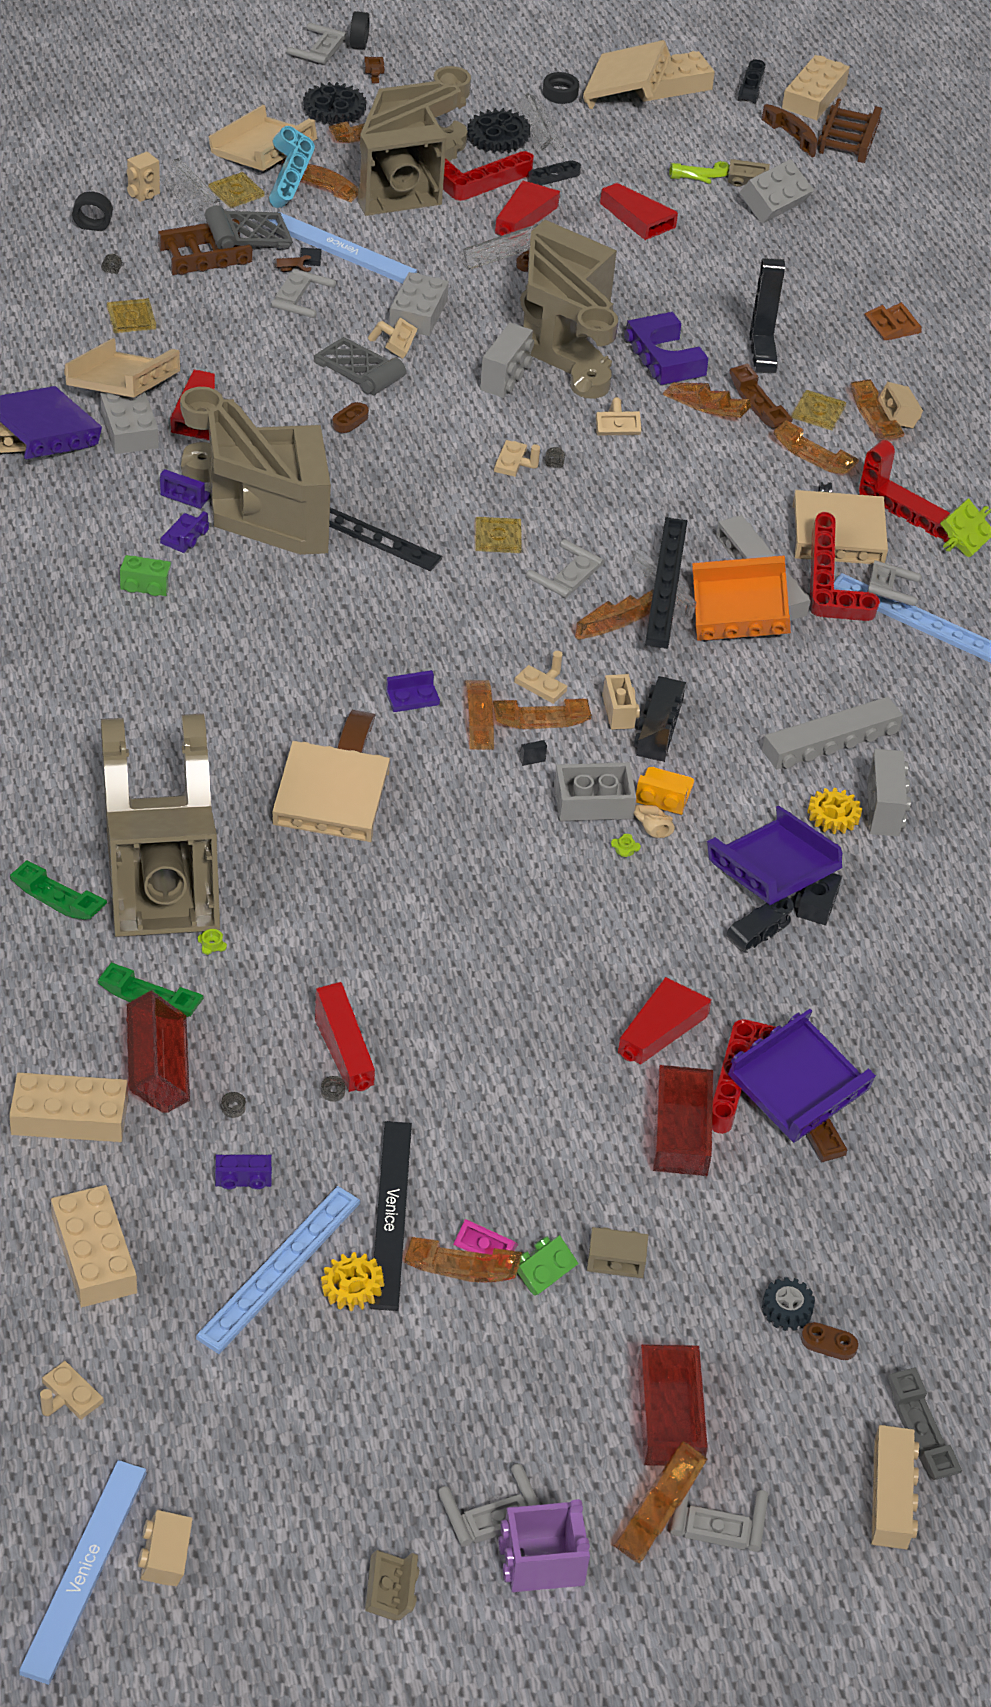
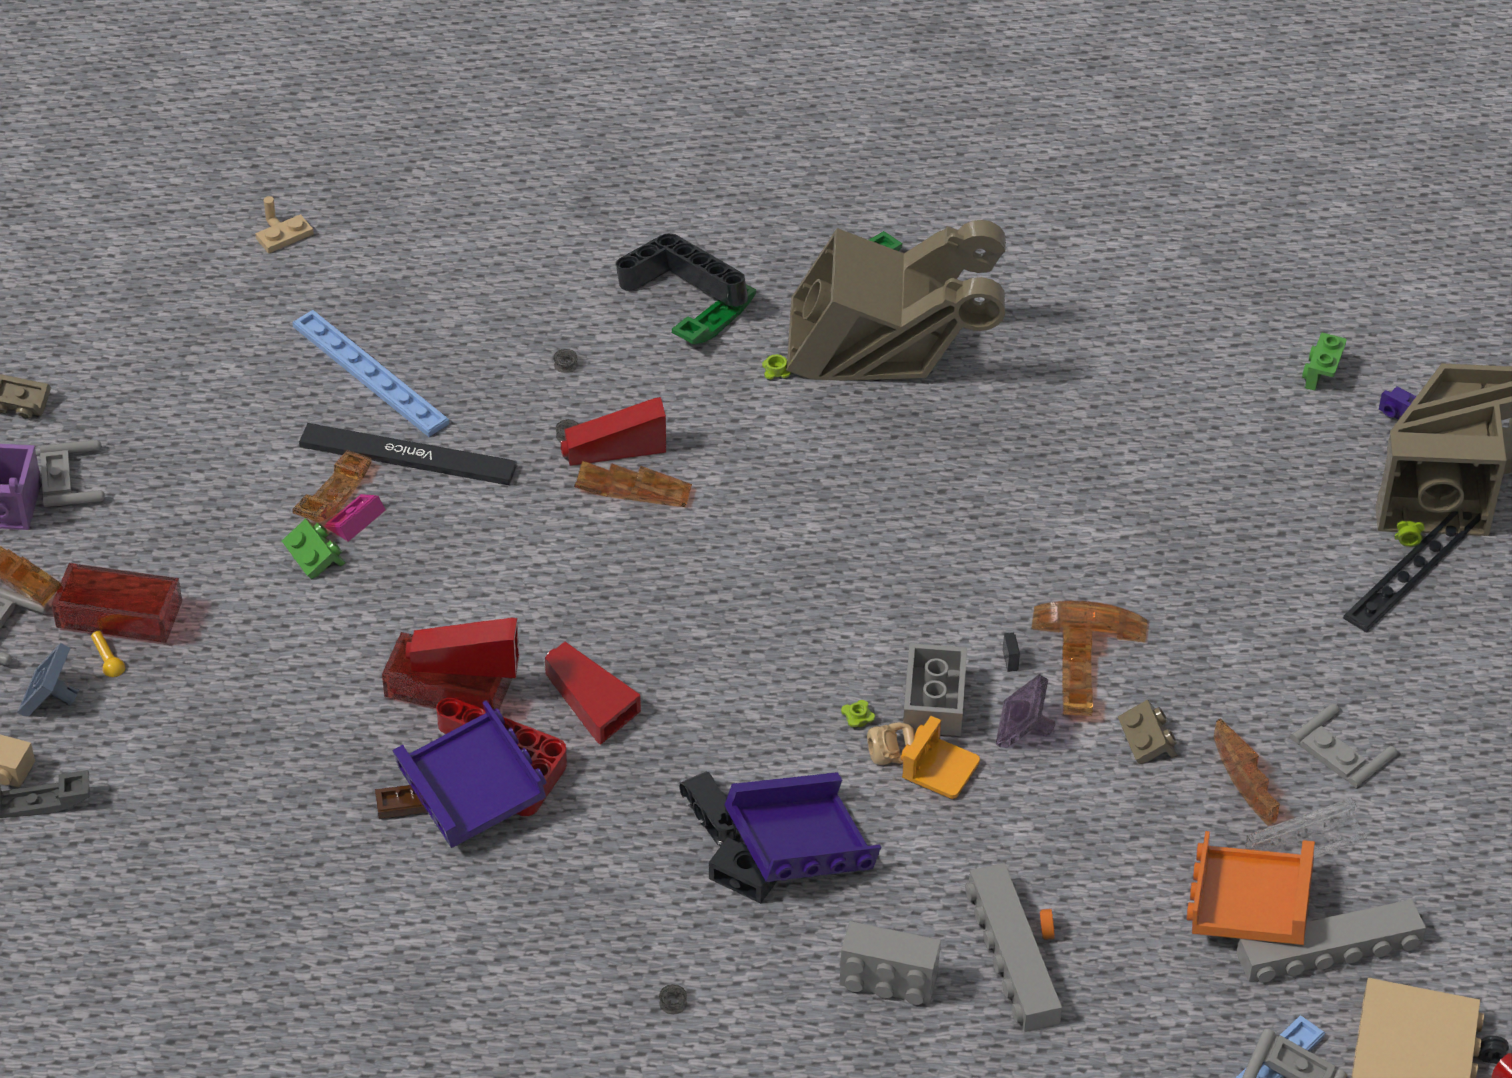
camera: 105 degrees right, 0 degrees up
(69, 1107) = (583, 247): tan brick -> none
(82, 1573) = (112, 227): light blue tile -> none
(93, 1246) = (423, 250): tan brick -> none
(94, 1013) = (687, 261): none -> black beam
(157, 1052) = (624, 299): clear red piece -> none
(165, 1549) = (104, 264): tan brick -> none
(243, 1171) = (484, 358): dark purple bracket -> none
(330, 791) = (967, 467): tan panel -> none
(335, 529) = (1409, 533): none -> lime plate
(353, 1281) = (332, 410): yellow gear -> none
(356, 730) = (1052, 504): reddish brown slope -> none
(395, 1028) = (630, 485): none -> clear orange slope
(412, 691) = (1124, 566): dark purple bracket -> none
(498, 534) = (1408, 689): clear yellow tile -> none
(543, 684) = (1137, 685): tan plate -> none
(591, 671) = (1147, 732): none -> dark tan bracket
(605, 735) = (1024, 712): none -> clear purple tile
(617, 1252) = (303, 598): dark tan brick -> none
(620, 701) = (1082, 739): tan brick -> none
(660, 718) = (1055, 779): black wedge -> none
(666, 583) = (1288, 816): black tile -> none
(682, 1079) = (467, 649): none -> red slope
(735, 1405) = (112, 665): none -> yellow bar
(792, 1441) = (46, 682): none -> sand blue tile
(793, 1294) = (198, 714): black wheel -> none
(802, 715) = (1047, 925): none -> orange tile
(829, 1341) = (157, 750): reddish brown plate -> none
(832, 810) = (879, 906): yellow gear -> none
(833, 598) = (1304, 992): red beam -> none
(957, 924) = (673, 990): none -> clear smoke bush

